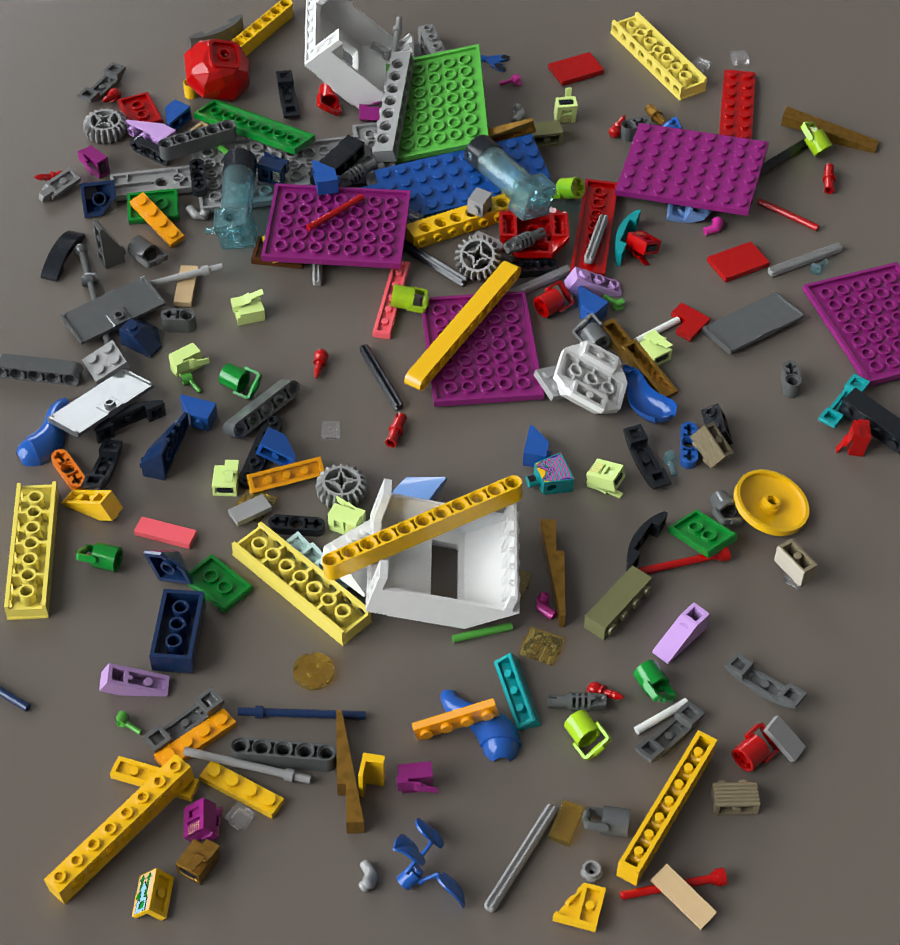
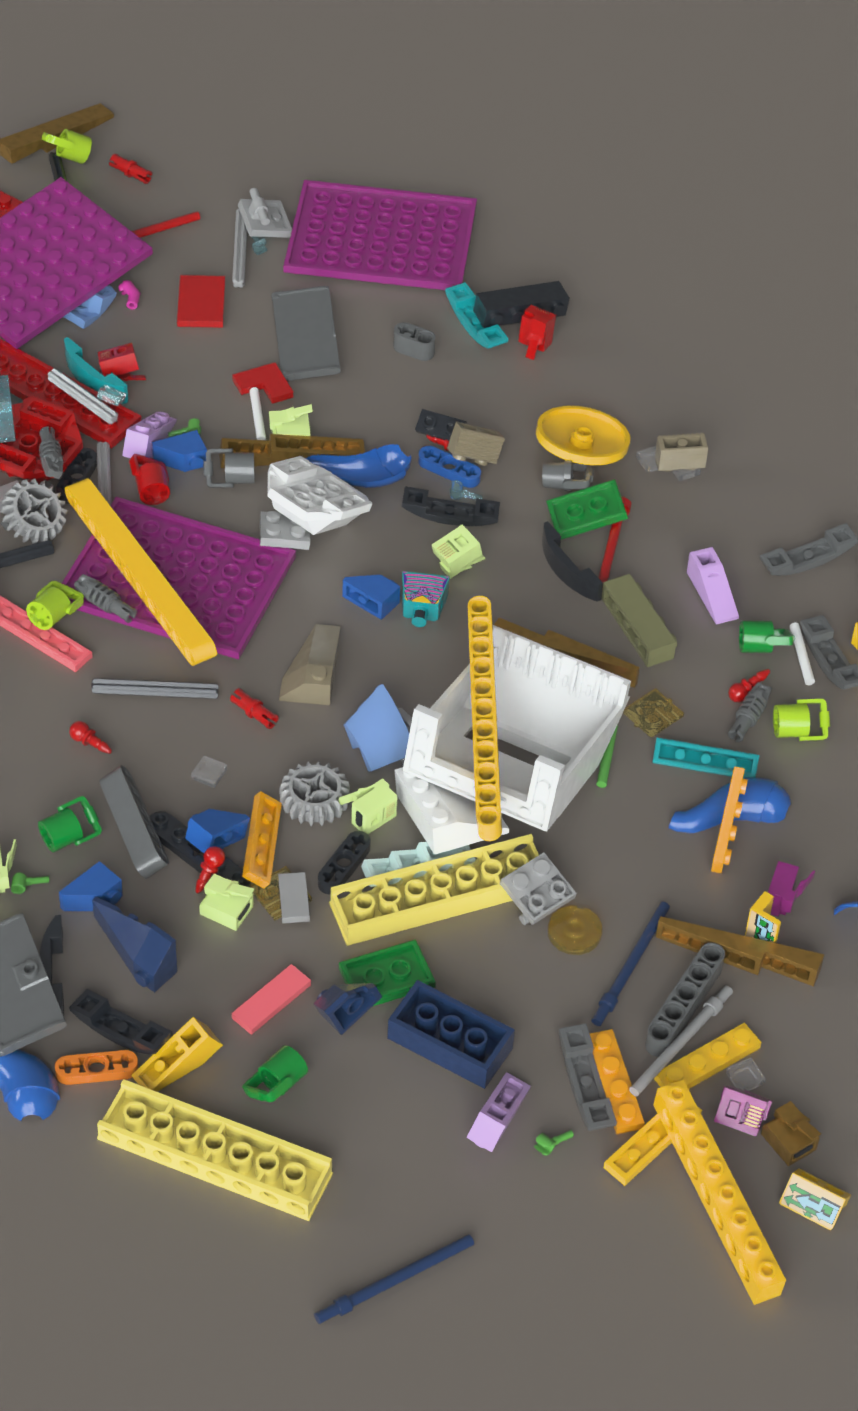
camera: 65 degrees left, 0 degrees up
(247, 454) = (213, 858): none -> red bar
(323, 630) = (537, 889): none -> light grey plate
(429, 318) = (104, 597): none -> dark grey hinge
(446, 448) = (313, 669): none -> dark tan wedge
(607, 251) = (111, 395): none -> clear tile
(840, 256) = (264, 217): none -> light grey plate

